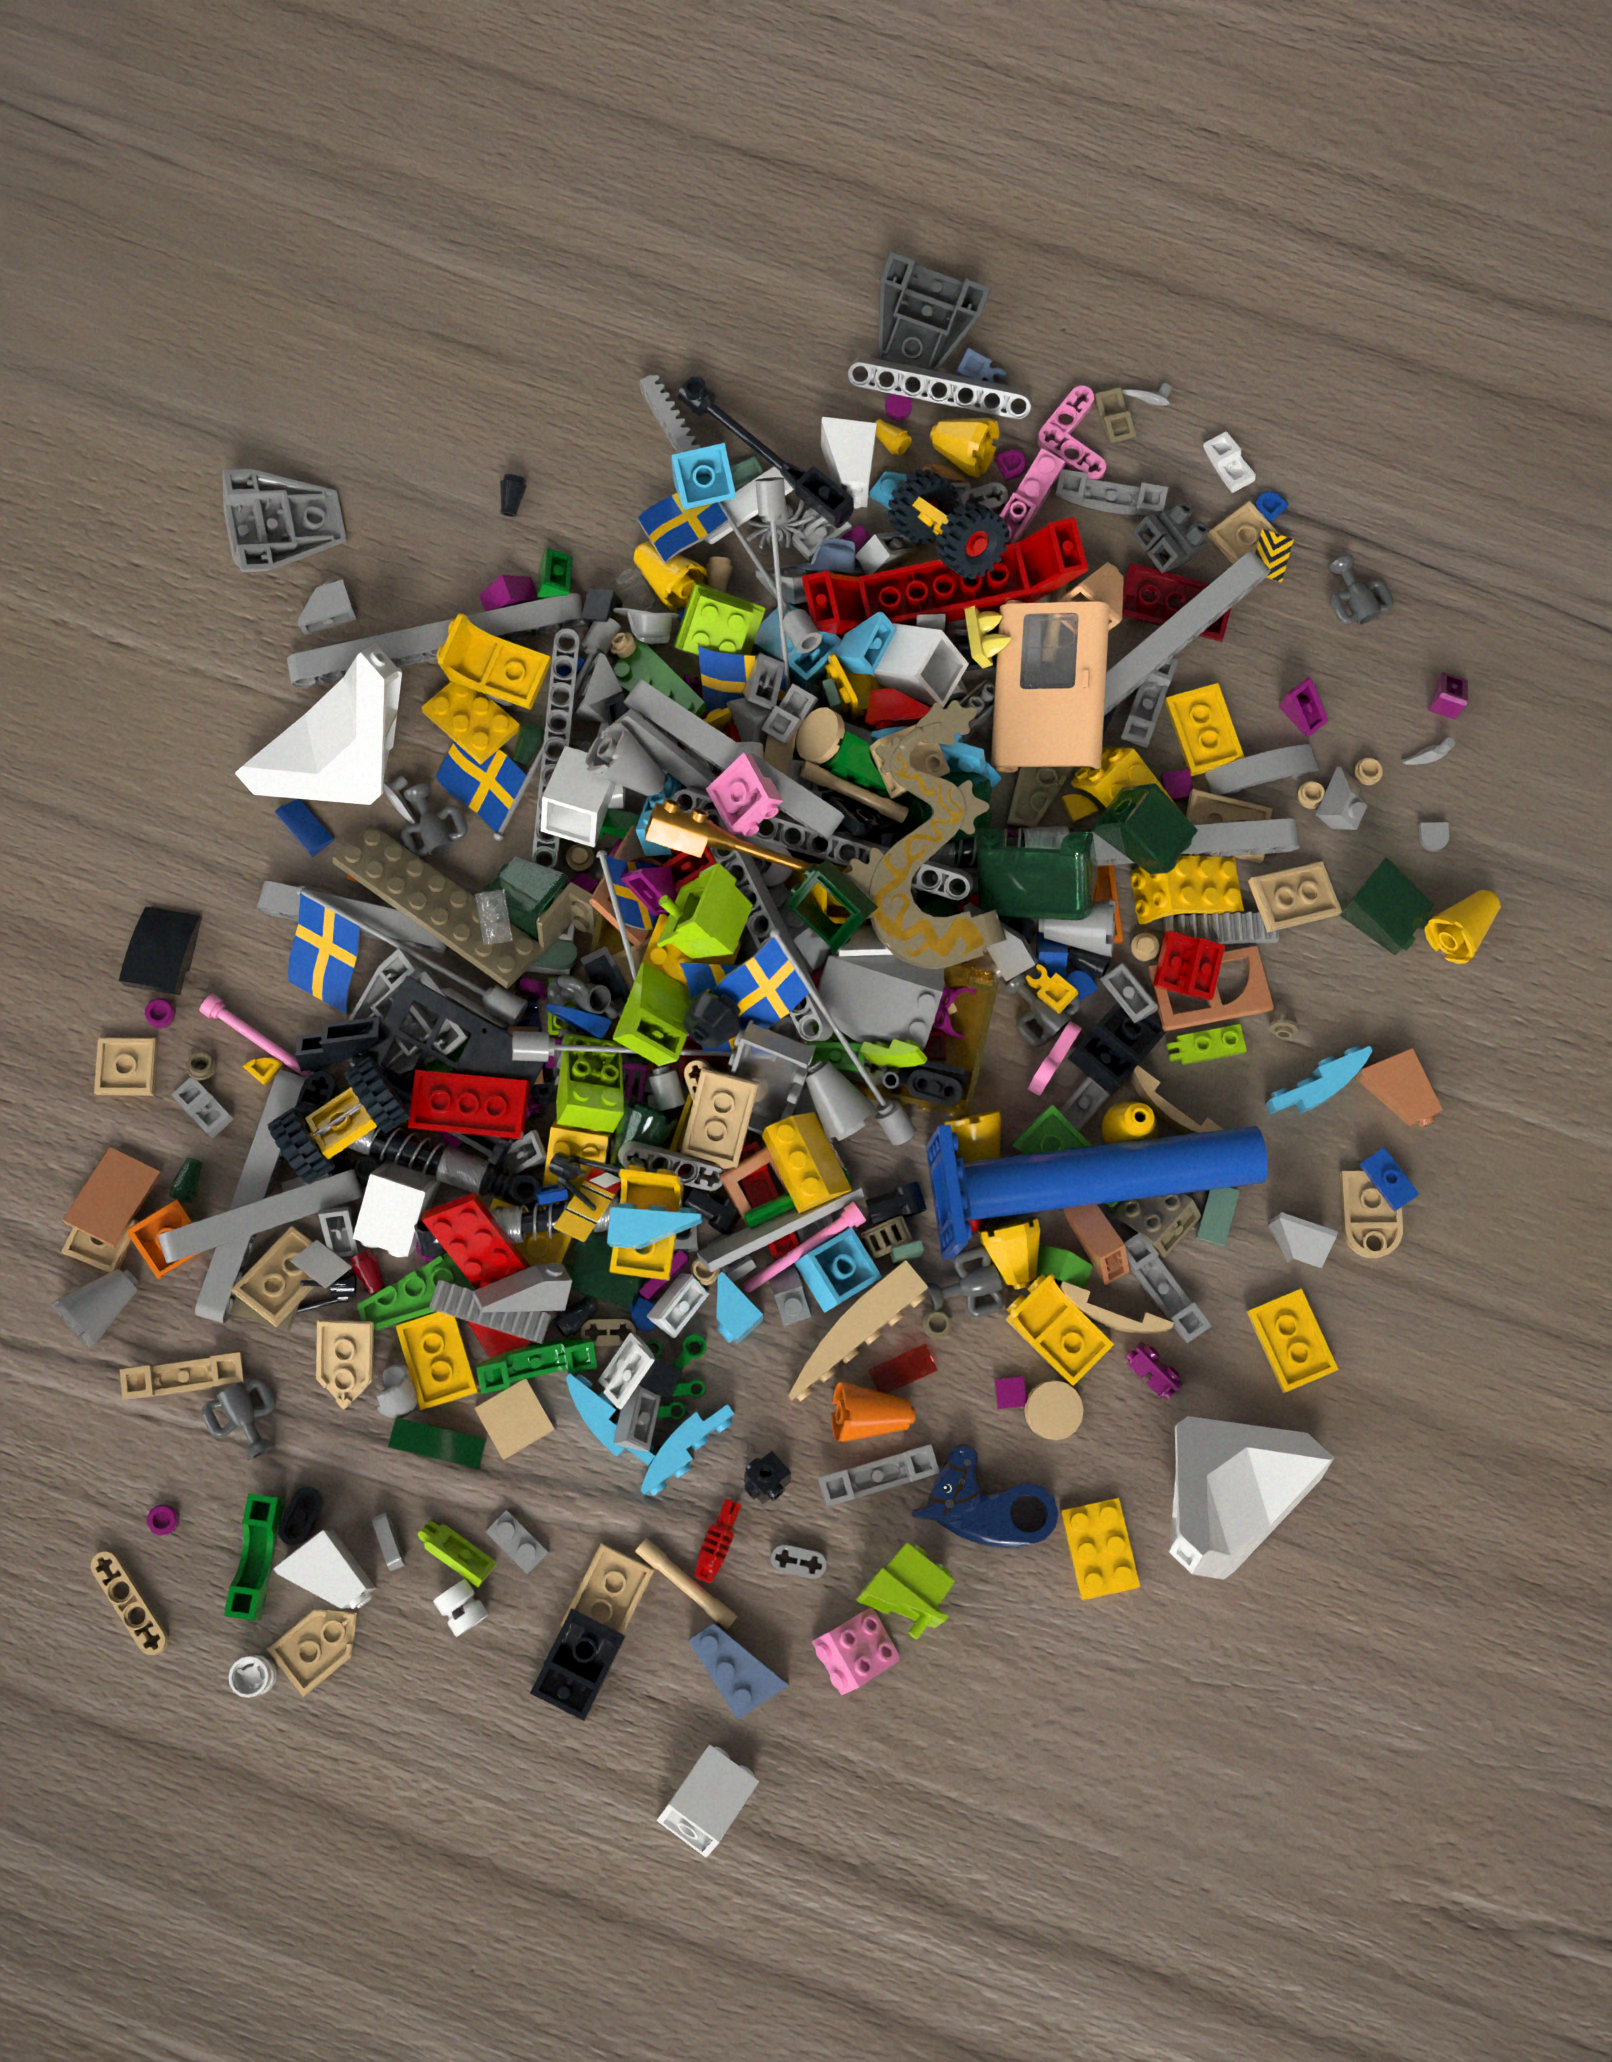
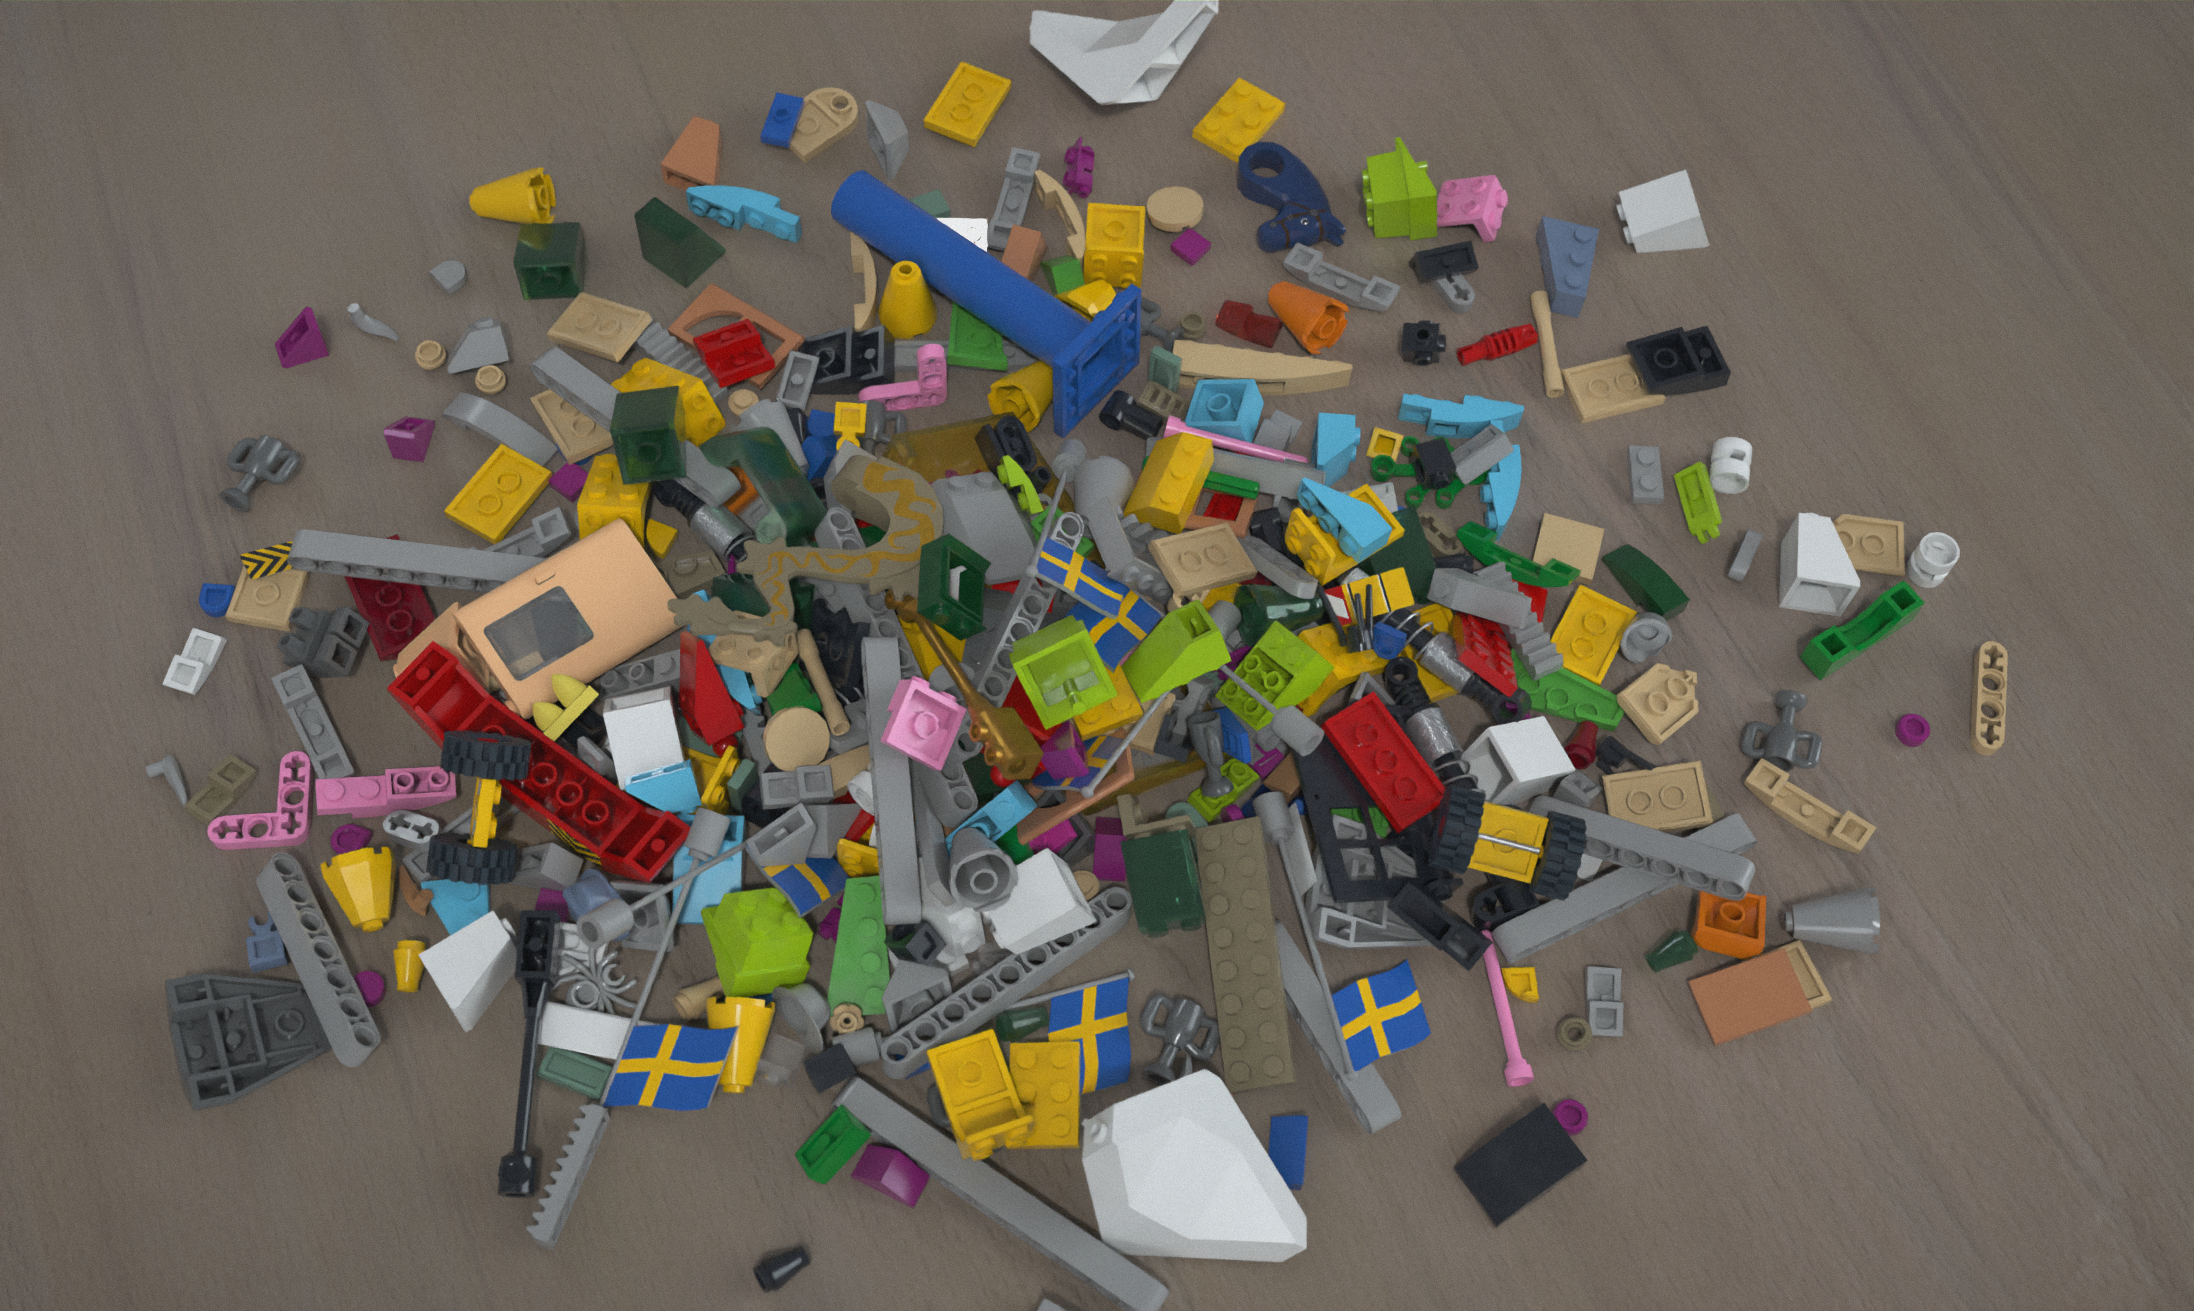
camera: 135 degrees left, 15 degrees down
(126, 1066) = (1640, 1102): tan tile -> none
(299, 1514) = (1795, 630): black plate -> none
(321, 1264) = (1619, 775): white sticker -> none
(493, 917) = (1218, 869): clear hips -> none
(626, 1370) = (1454, 483): white slope -> none
(702, 476) = (611, 1080): medium azure slope -> none
(712, 1019) = (1139, 601): black cone -> none
(714, 1372) = (1384, 443): none -> yellow slope
(821, 1570) = (1445, 261): none -> black panel
(1208, 1045) = (785, 307): lime hinge -> none
(1284, 1026) = (721, 264): dark tan plate -> none
(1327, 1006) = (675, 243): none -> clear green slope

